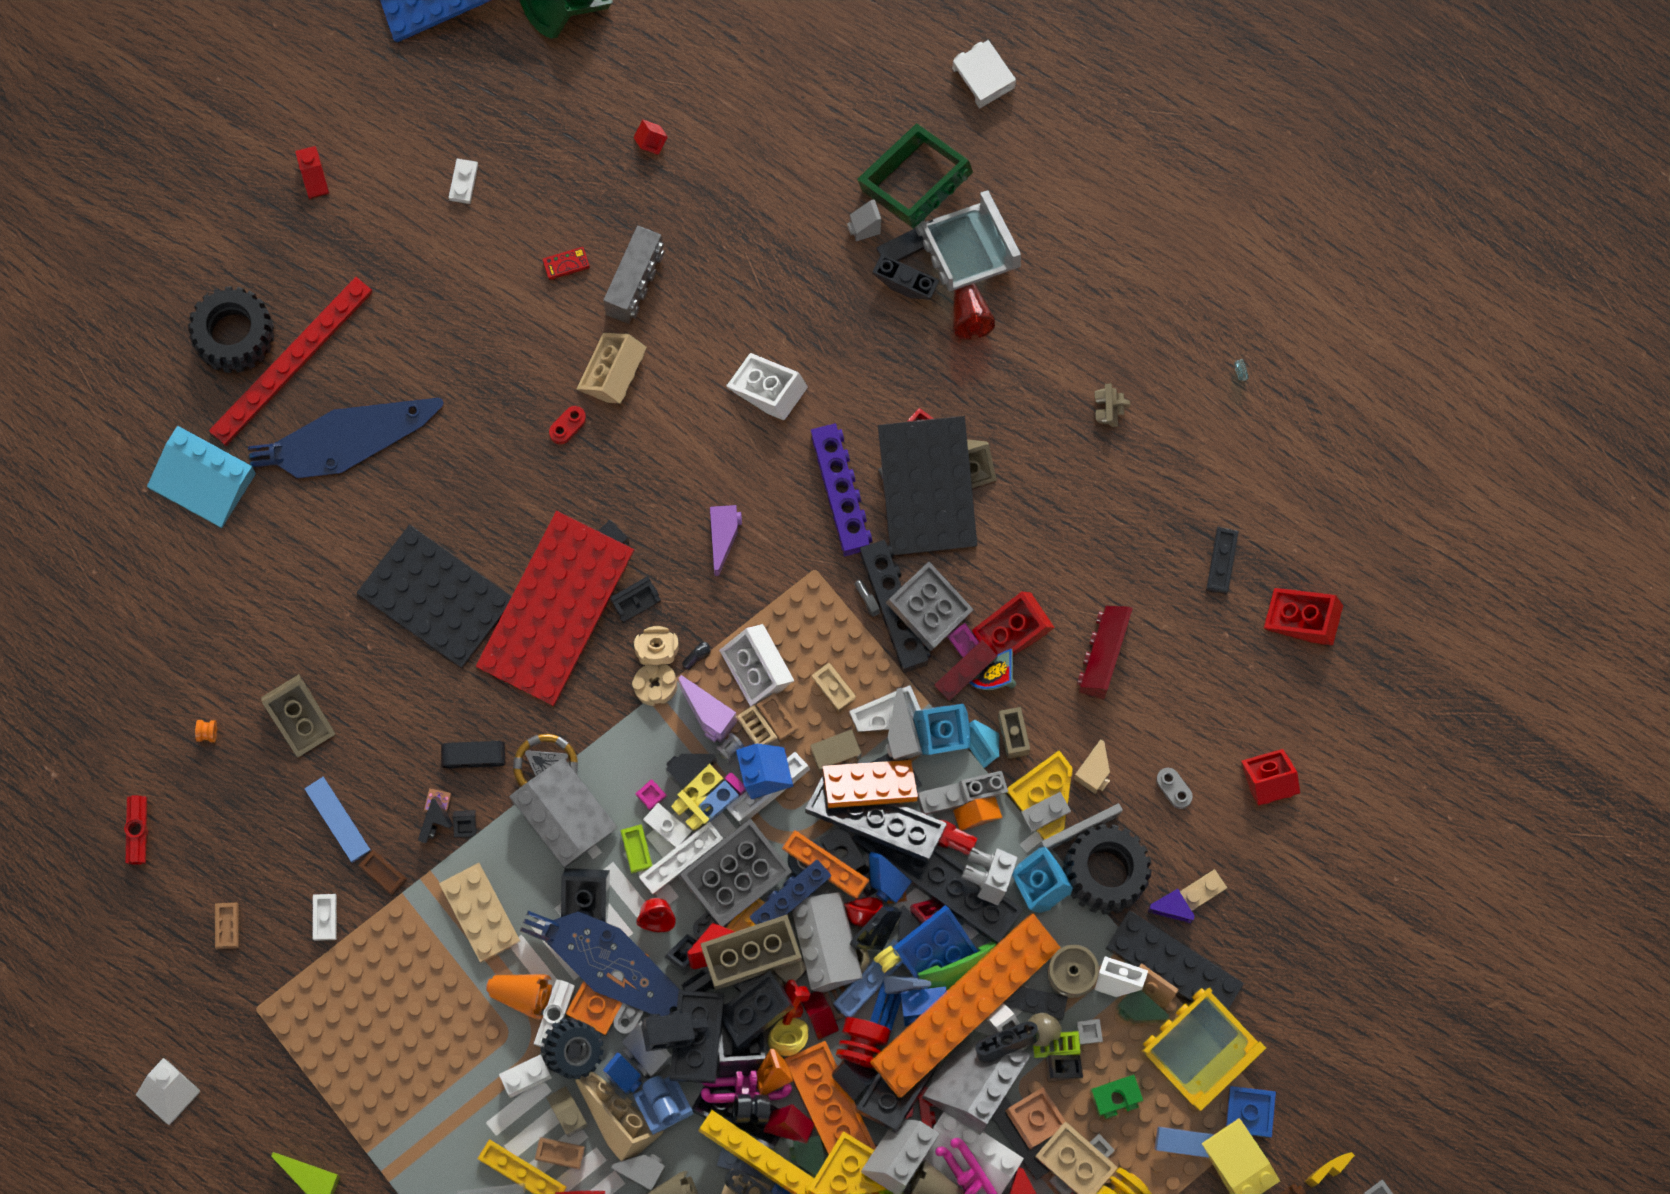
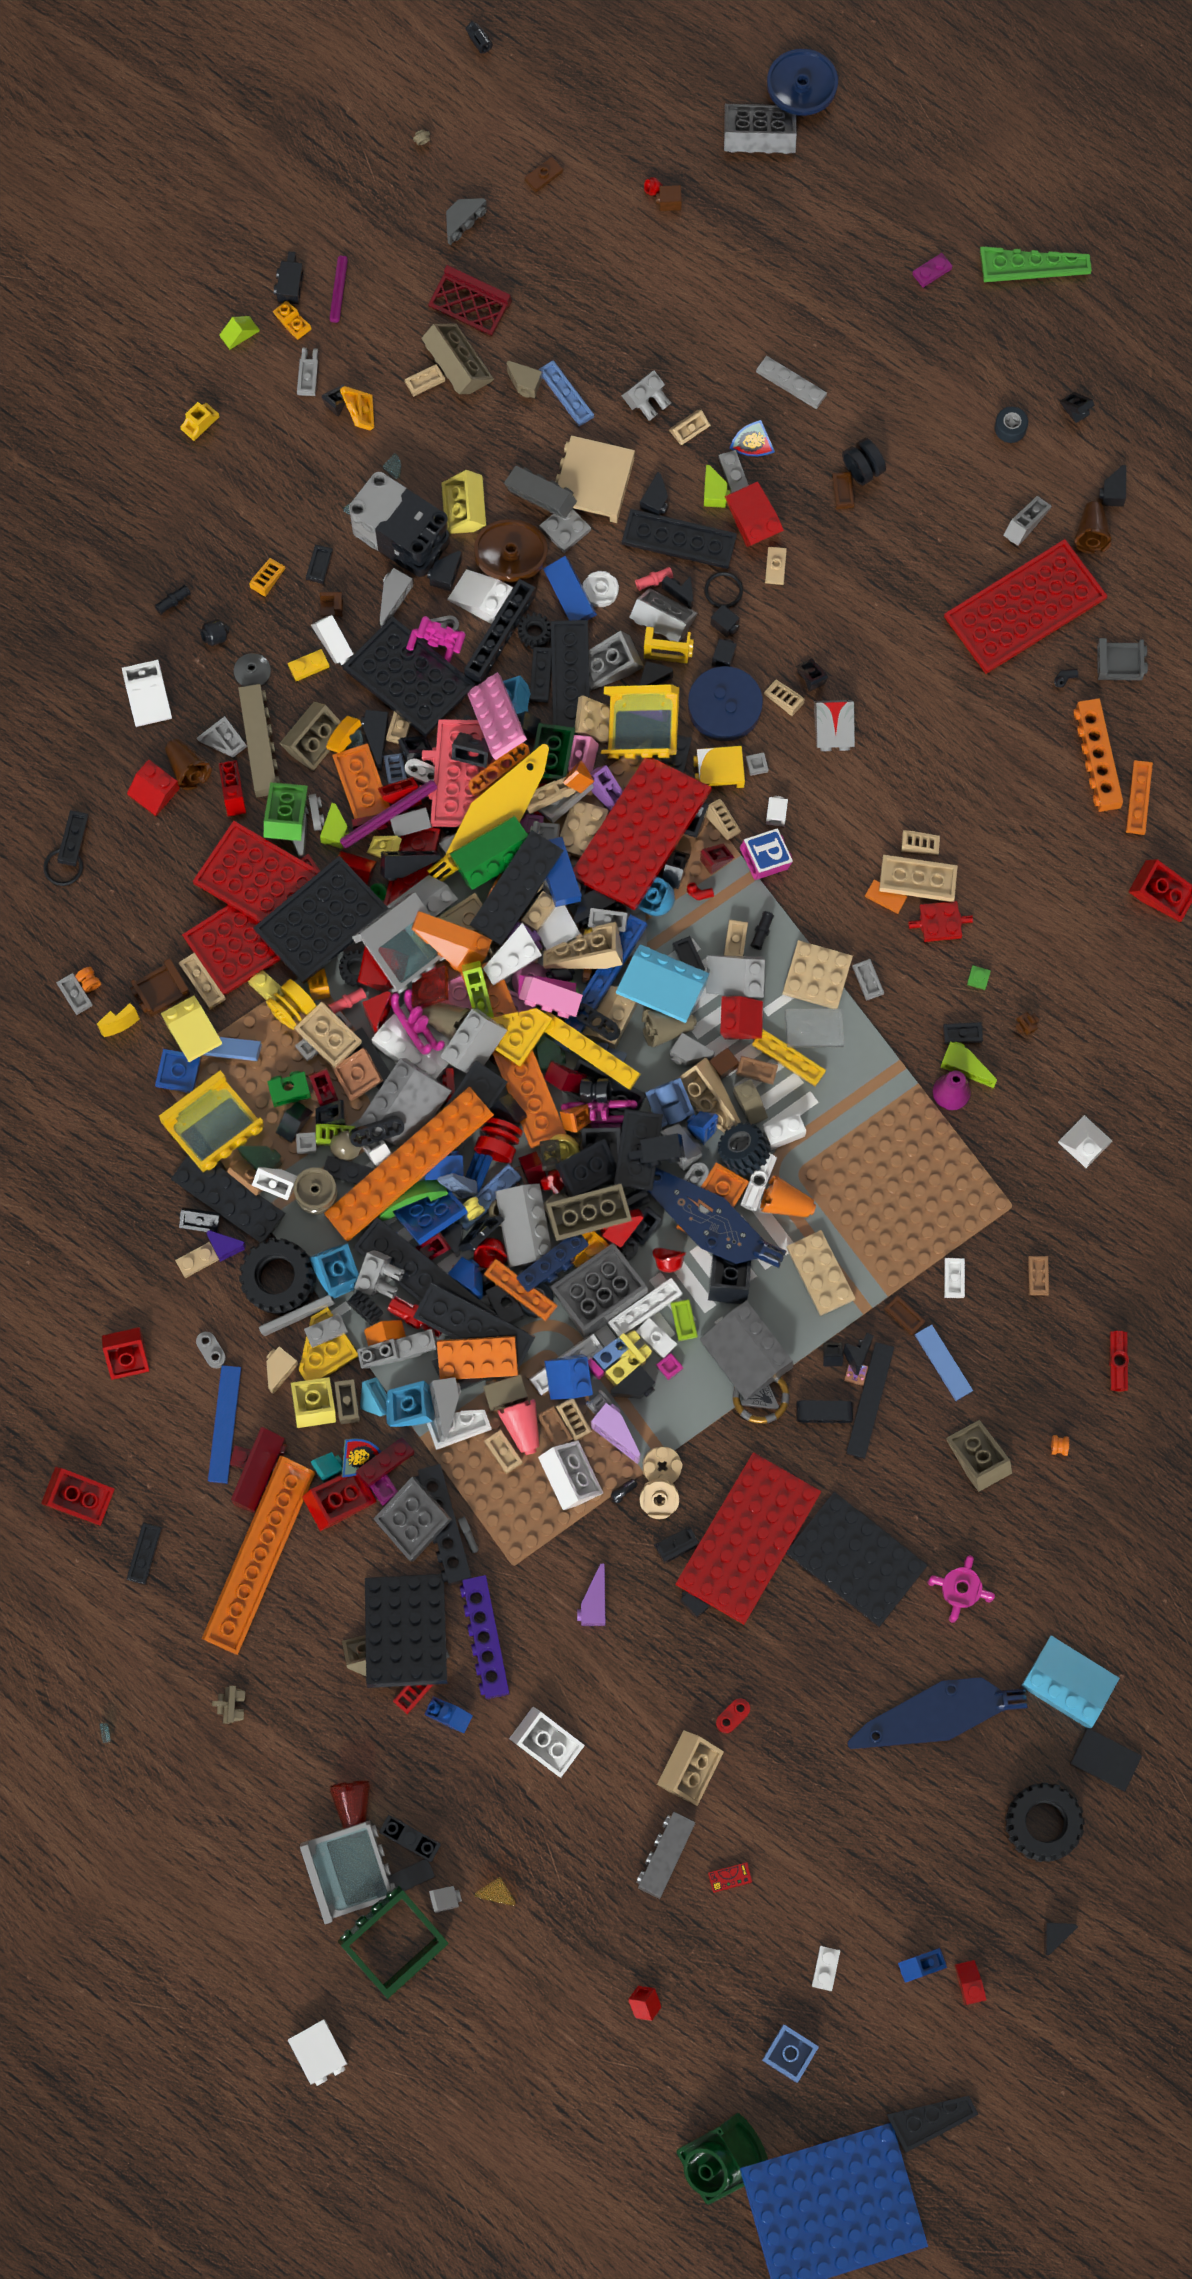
camera: 175 degrees left, 0 degrees up
(164, 400) = (1106, 1760): none -> black tile
(221, 223) = (1055, 1934): none -> black slope
(290, 361) = (988, 1793): red plate -> none
(326, 575) = (953, 1596): none -> dark pink plate
(331, 1151) = (952, 1090): none -> magenta cone
(353, 43) = (929, 2121): none -> black wing
(362, 186) = (922, 1965): none -> blue slope
(421, 772) = (870, 1400): none -> black tile
(498, 94) = (790, 2053): none -> medium blue brick
(599, 1157) = (724, 1063): none -> reddish brown panel
(800, 1024) = (550, 1154): none -> clear smoke bracket
(811, 233) = (496, 1892): none -> clear yellow slope
(814, 715) = (522, 1425): none -> coral cone
(874, 406) = (448, 1714): none -> blue slope
(1002, 836) = (365, 1307): none -> black tyre
(1029, 659) = (327, 1466): none -> teal slope
(1052, 731) = (313, 1402): none -> light yellow slope
(1075, 1099) = (323, 1087): none -> dark red slope
(1095, 561) = (258, 1555): none -> orange plate
(1106, 1059) = (293, 1121): none -> black slope
(1126, 669) = (239, 1457): none -> dark red plate
(1149, 706) = (224, 1424): none -> blue tile
(1204, 935) = (199, 1220): none -> plate

